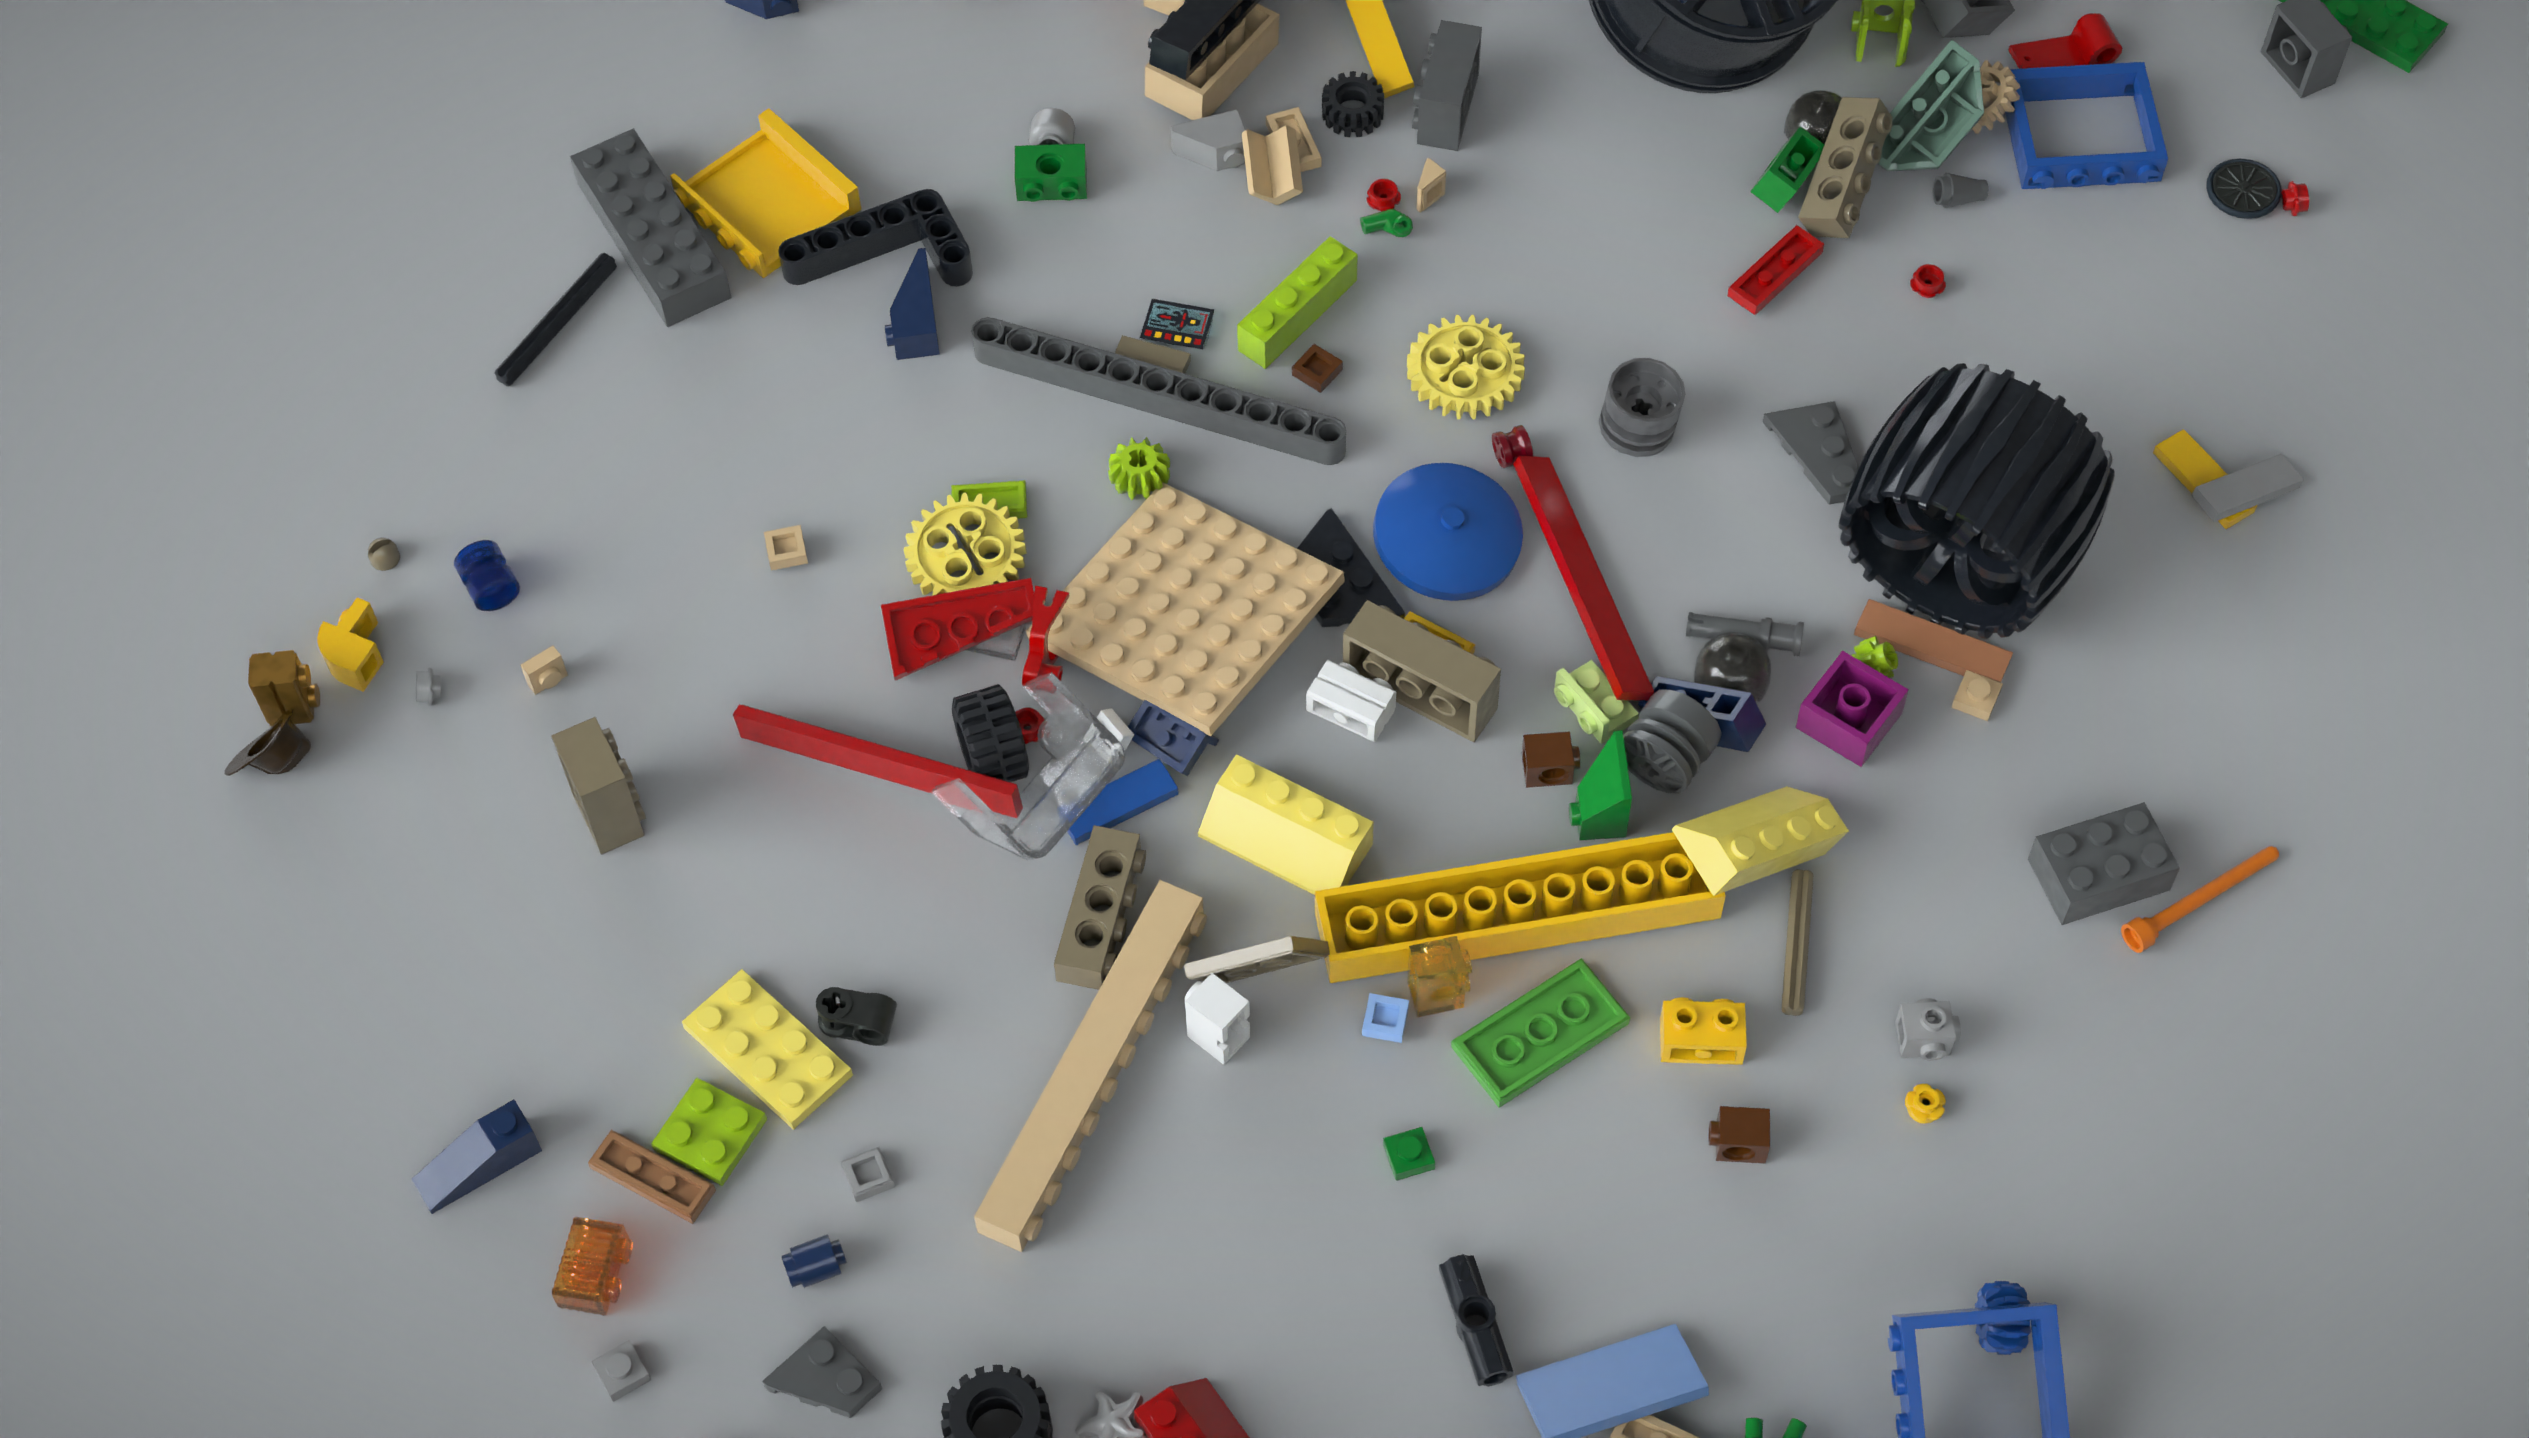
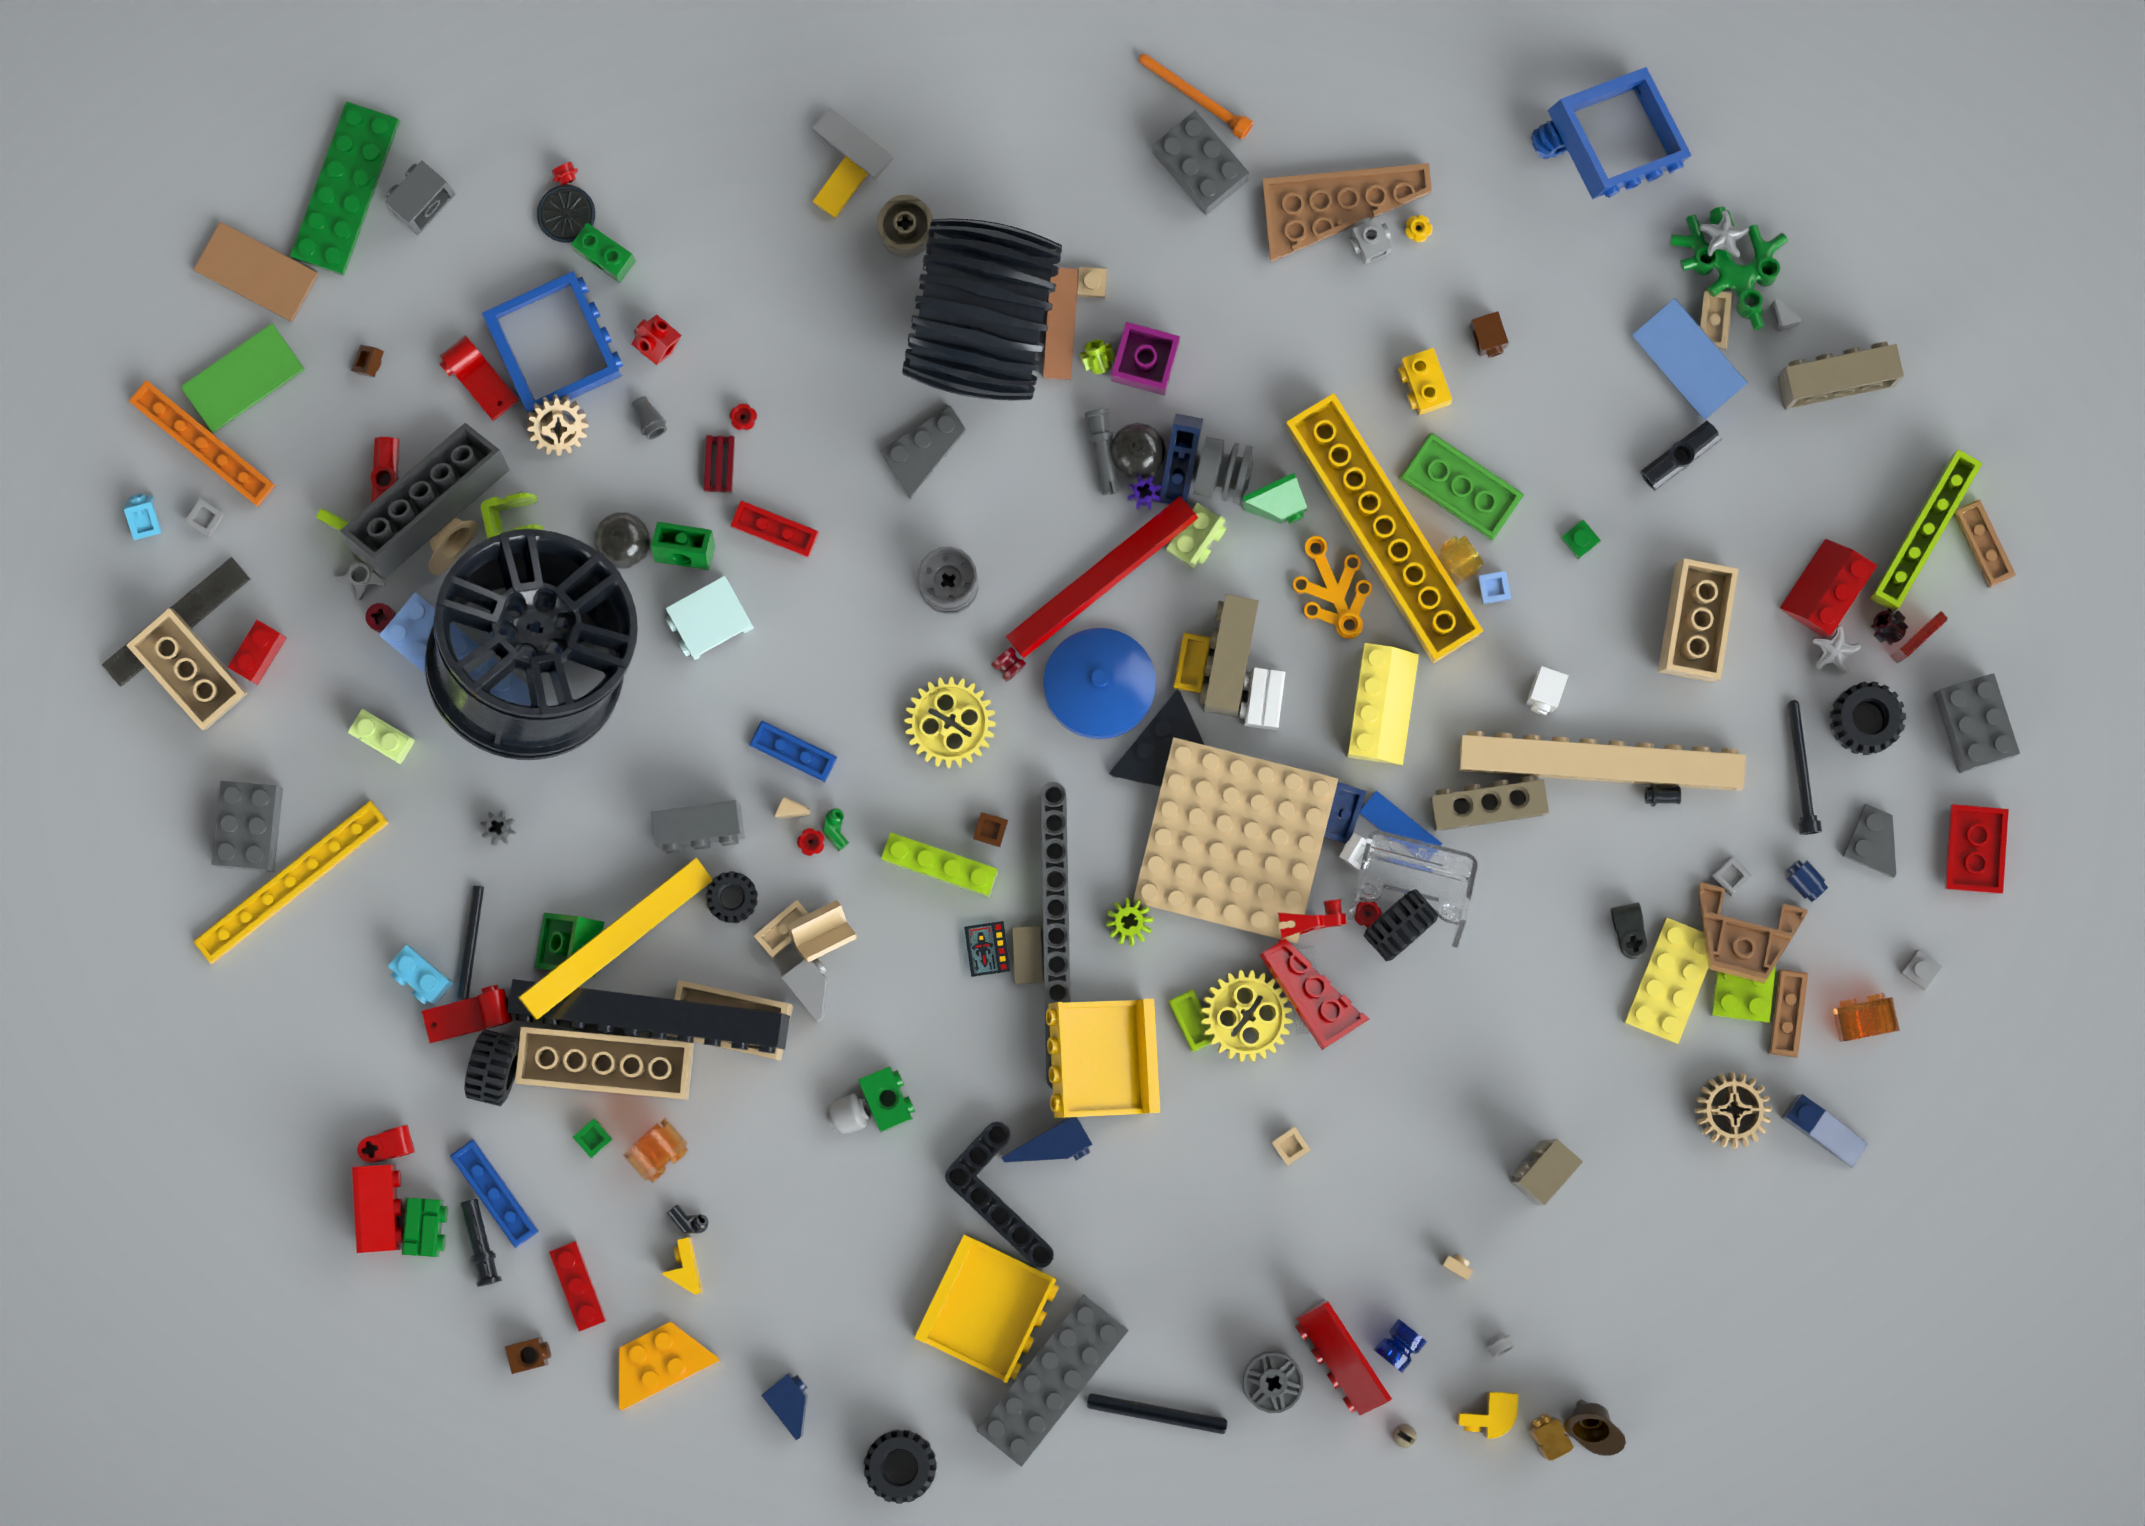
camera: 105 degrees left, 25 degrees up
(506, 507) = (1343, 1358): none -> red slope
(521, 428) = (1268, 1365): none -> dark grey wheel
(556, 1040) = (1733, 1123): none -> tan gear
(634, 41) = (900, 1491): none -> black tyre
(764, 1138) = (1741, 946): none -> medium nougat wing
(871, 758) = (1444, 997): red tile -> none
(890, 1297) = (1809, 822): none -> black piece
(990, 378) = (1103, 1058): none -> yellow panel
(1015, 1119) = (1662, 795): none -> black pin
(1232, 1250) = (1698, 620): none -> tan brick
(1258, 959) = (1503, 676): dark tan tile -> none
(1458, 829) = (1335, 592): none -> light orange plant
(1498, 214) = (793, 751): none -> blue tile
(1549, 759) = (1259, 548): reddish brown brick -> none
(1673, 656) = (1141, 486): none -> dark purple gear
(1693, 175) = (708, 618): none -> light aqua panel
(1759, 837) = (1278, 385): light yellow slope -> none
(1797, 942) = (1331, 343): dark tan axle -> none
(1845, 167) = (656, 510): dark tan brick -> none
(1879, 240) = (708, 464): none -> dark red tile
(1935, 113) = (600, 456): sand green wedge -> none
(1998, 992) = (1319, 205): none -> medium nougat wing
(2055, 218) = (655, 339): none -> red brick
(2129, 509) = (890, 224): none -> dark tan brick
(2182, 201) = (603, 252): none -> green brick

